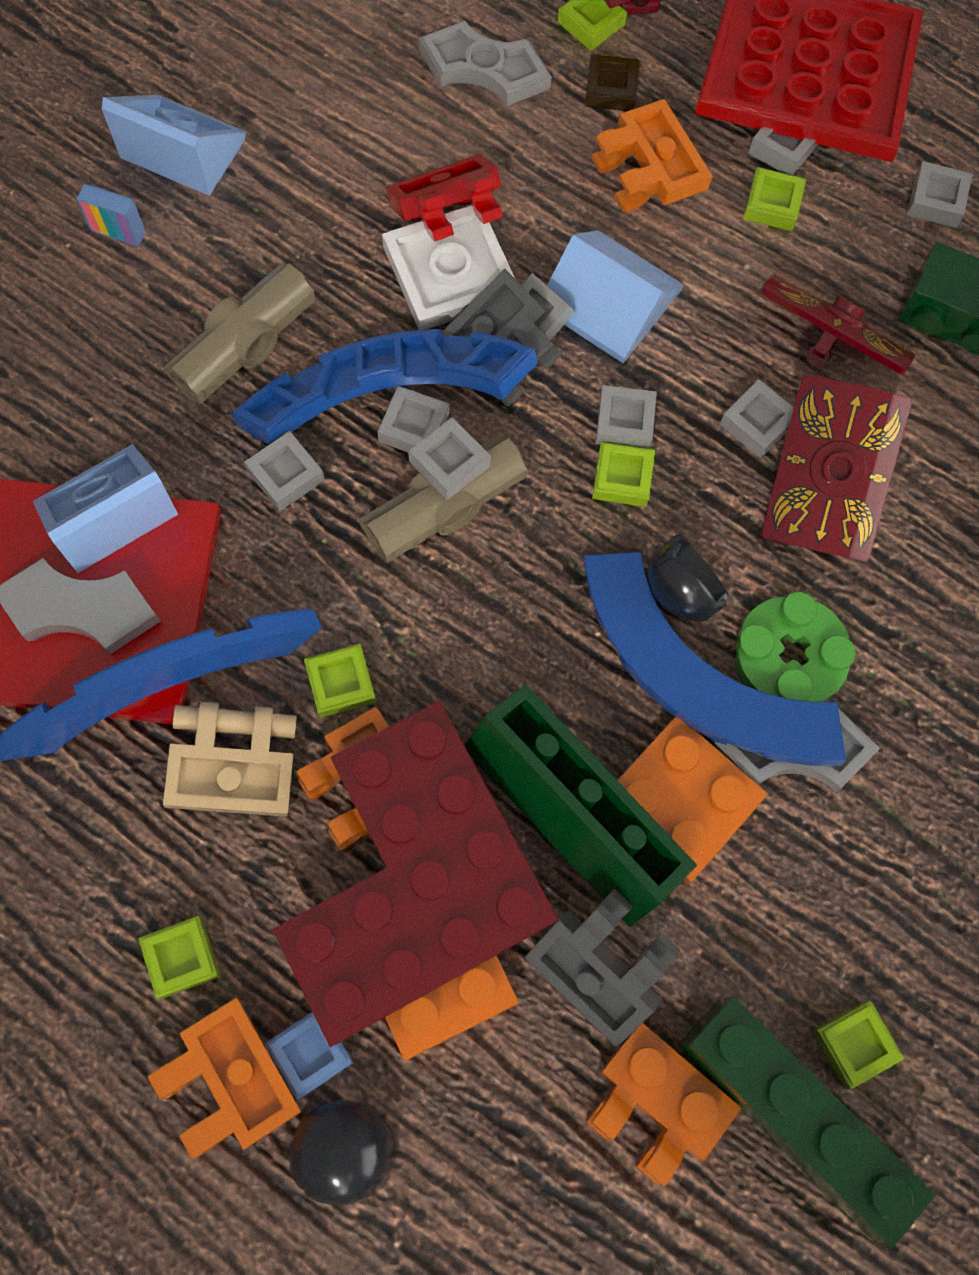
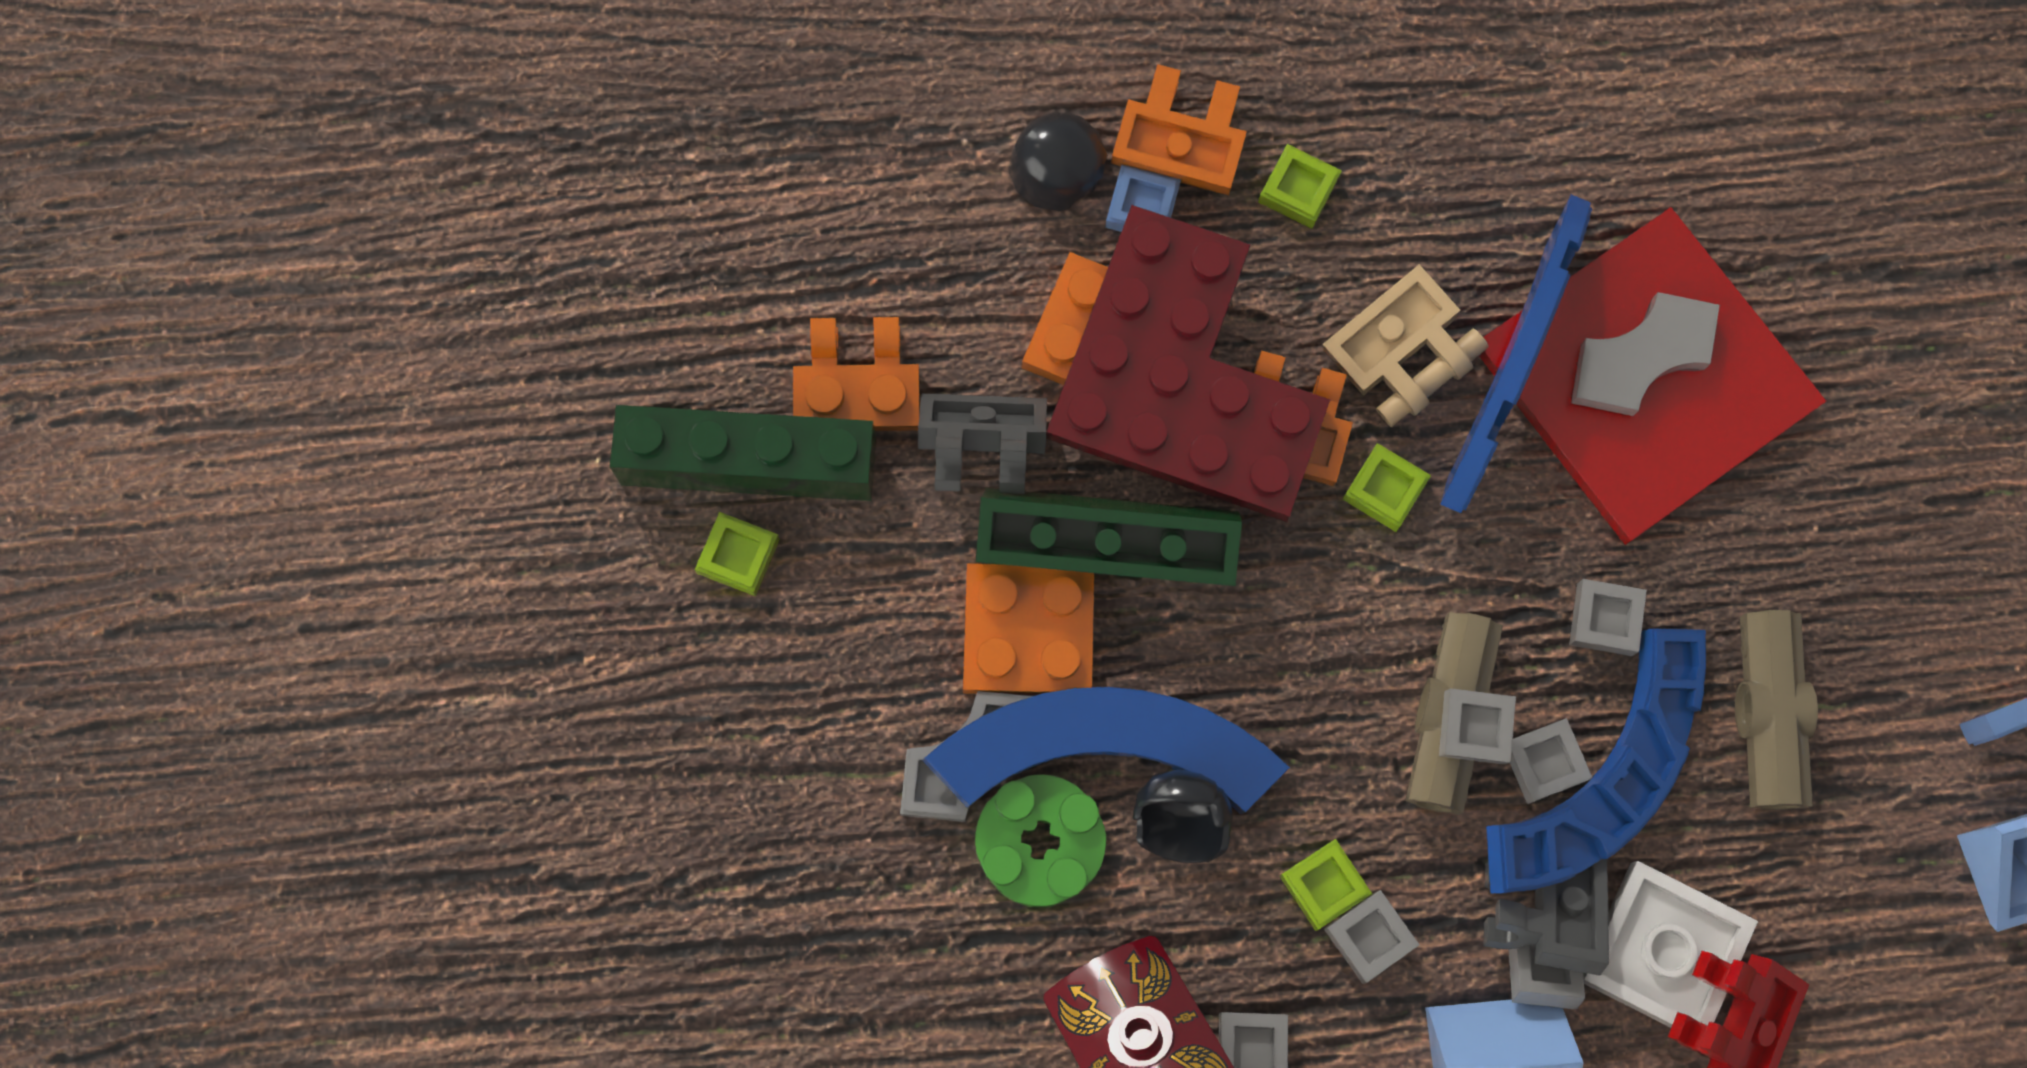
camera: 140 degrees right, 5 degrees up
(105, 508) = (1714, 445): light blue slope -> none

